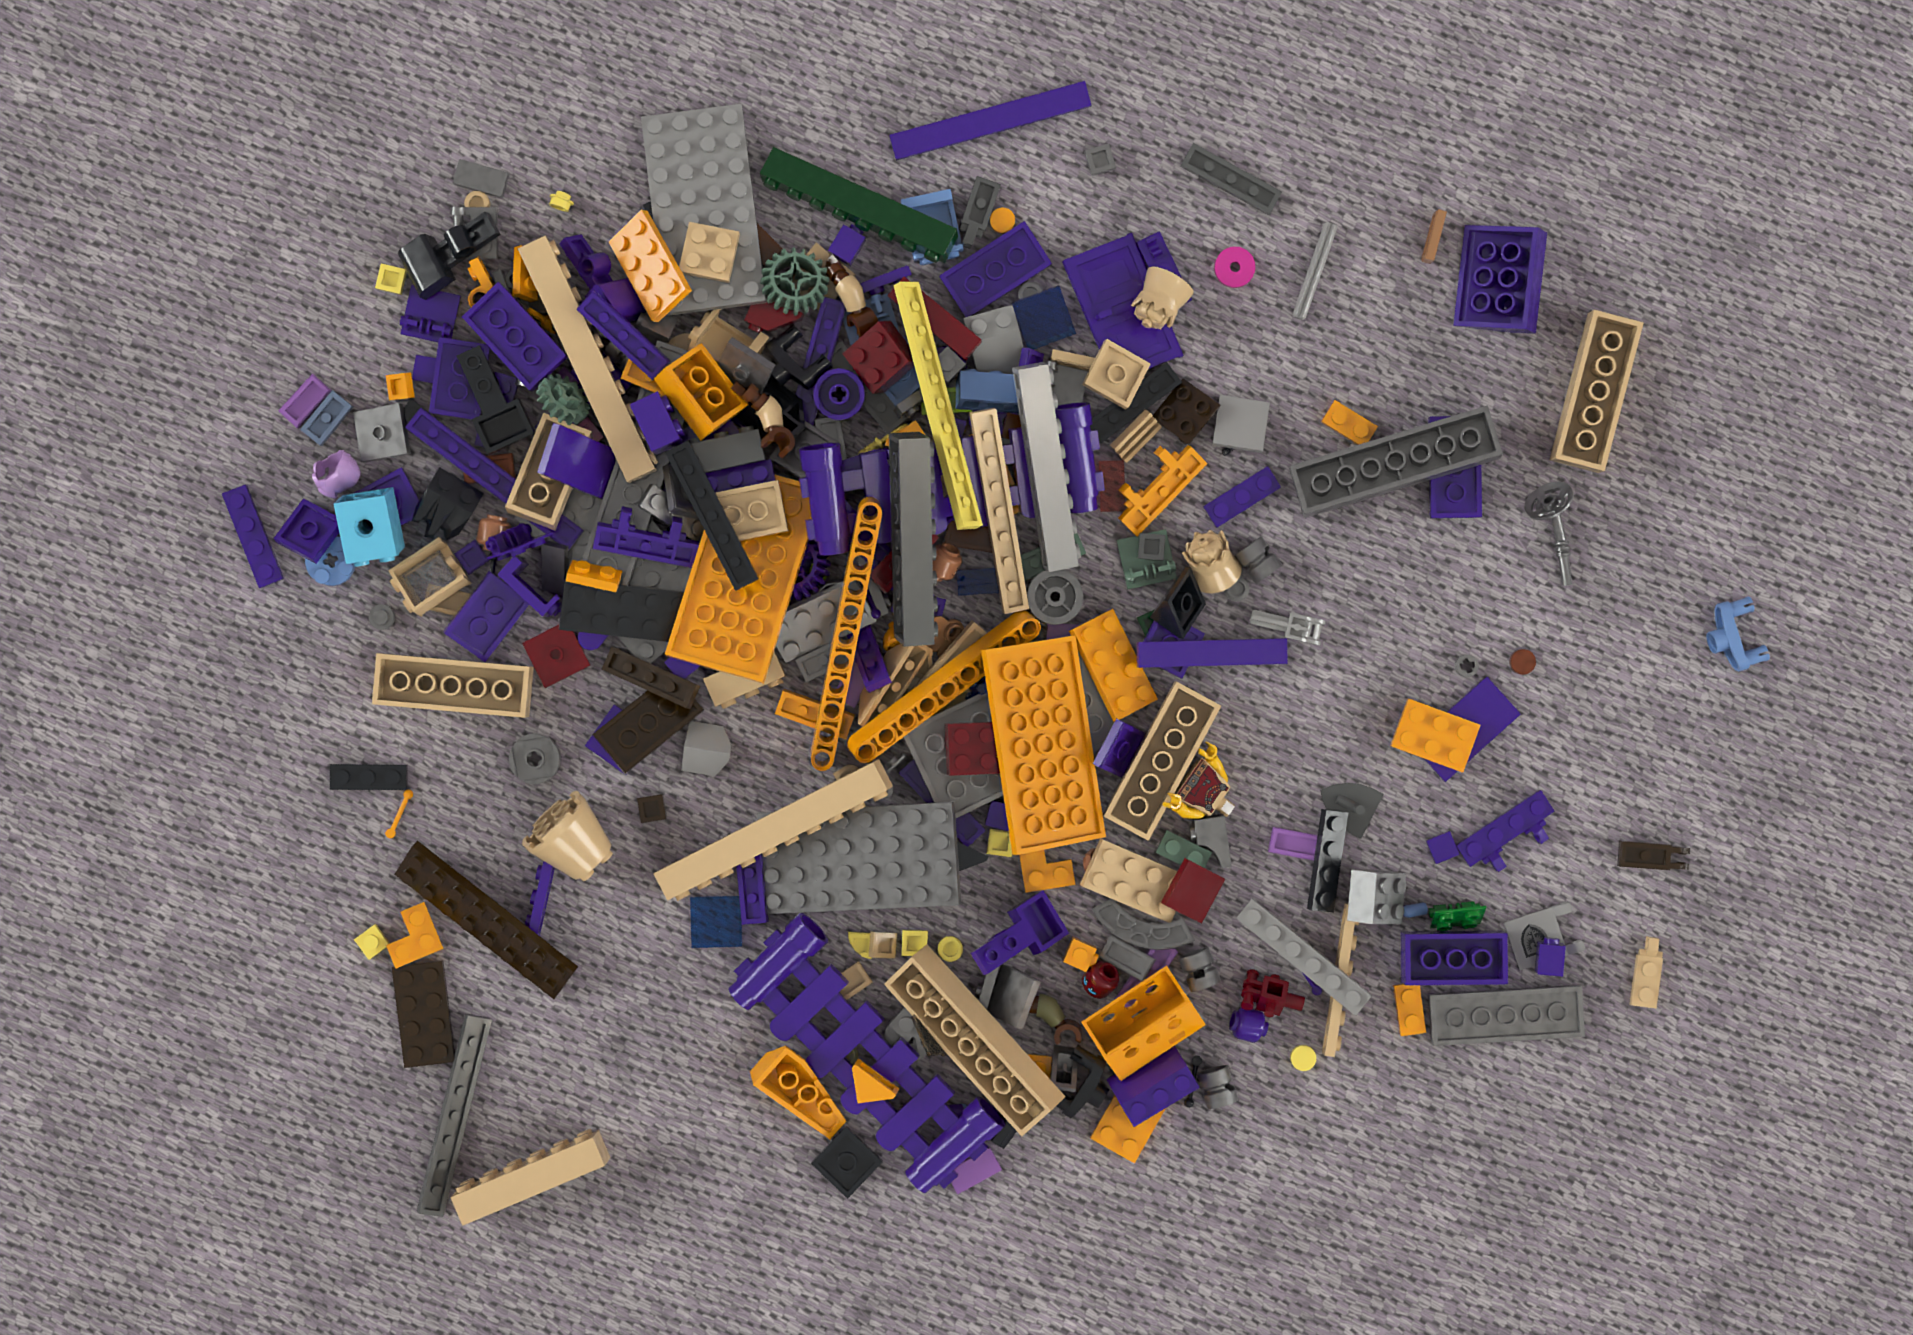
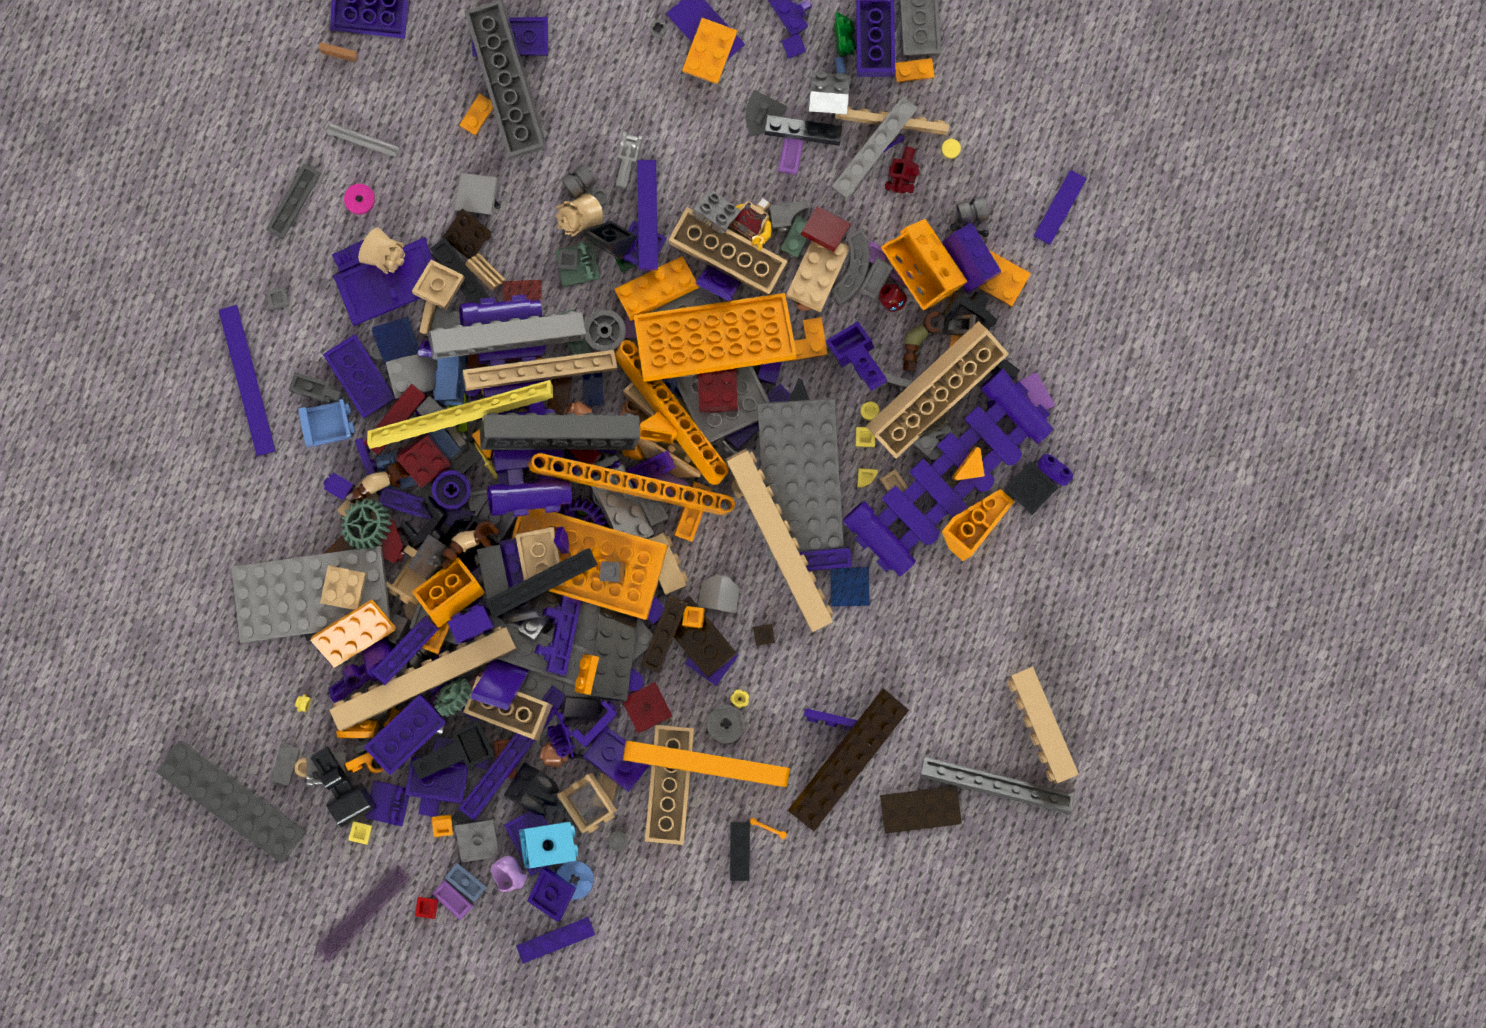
camera: 85 degrees left, 5 degrees down
(287, 284) = (363, 913): none -> clear purple plate
(293, 366) = (426, 907): none -> red tile
(372, 941) = (865, 848): light yellow plate -> none
(421, 940) = (864, 810): light orange plate -> none
(431, 108) = (231, 801): none -> dark grey brick
(471, 557) = (572, 772): dark purple tile -> none
(476, 733) = (706, 764): none -> light orange beam
(569, 838) = (785, 695): tan cone -> none
(570, 783) = (734, 699): none -> light yellow plate
(672, 716) = (693, 617): none -> light orange plate
(726, 609) = (612, 571): none -> flat silver brick
(770, 541) = (561, 540): none -> dark purple tile
(859, 205) = (309, 477): dark green brick -> none
(871, 1194) = (1055, 469): none -> dark purple plate
(882, 944) = (867, 461): tan tile -> none
(920, 669) = (658, 429): none -> light orange slope
(999, 843) = (789, 373): light yellow tile -> none
(1002, 220) = (322, 371): light orange tile -> none
(1012, 996) = (904, 362): flat silver tile -> none
(1080, 954) = (873, 312): light orange brick -> none
(1175, 476) = (535, 262): light orange hinge -> none
(1199, 960) = (878, 227): flat silver wheel -> none
(1215, 745) = (716, 210): none -> flat silver hinge
(1224, 1202) = (1060, 207): none -> dark purple tile
(1242, 497) = (531, 193): dark purple plate -> none
(1248, 1025) = (926, 188): dark purple head -> none

